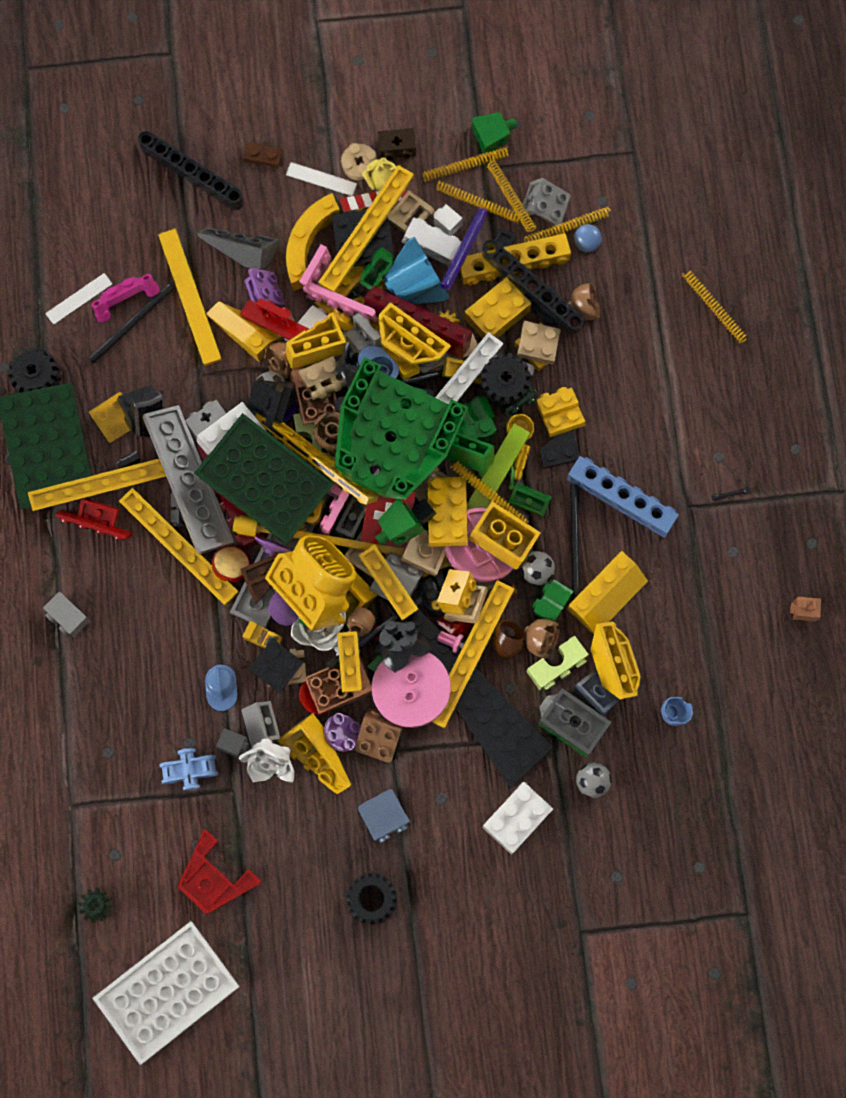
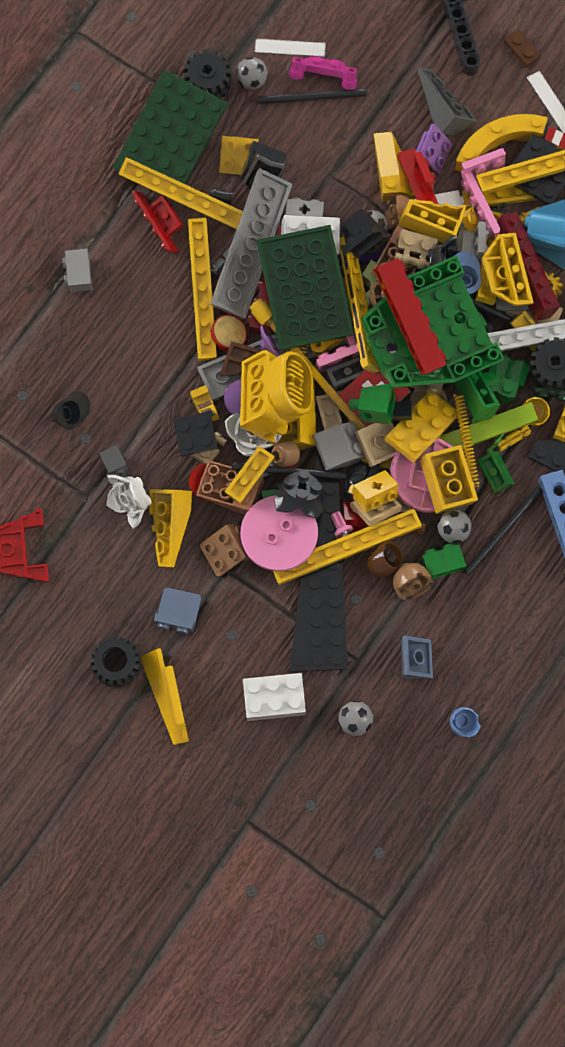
camera: 40 degrees right, 0 degrees up
(68, 343) = (251, 73): none -> light grey piece
(160, 731) = (71, 410): none -> black piece
(188, 769) = (68, 456): light blue axle -> none
(190, 297) = (372, 112): yellow tile -> none
(221, 687) = (143, 417): medium blue piece -> none
(260, 722) = (148, 465): light grey brick -> none
(341, 732) = (200, 523): medium lavender dish -> none
(371, 434) = (409, 316): none -> red brick
(373, 272) = (530, 201): green brick -> none
(388, 582) = (330, 441): yellow plate -> none
(432, 889) = (166, 693): none -> yellow wedge
(544, 675) = (389, 611): yellowish green arch -> none
(572, 722) = (378, 662): dark grey piece -> none
(608, 592) = (492, 591): yellow slope -> none
(615, 661) = (452, 645): yellow wedge -> none

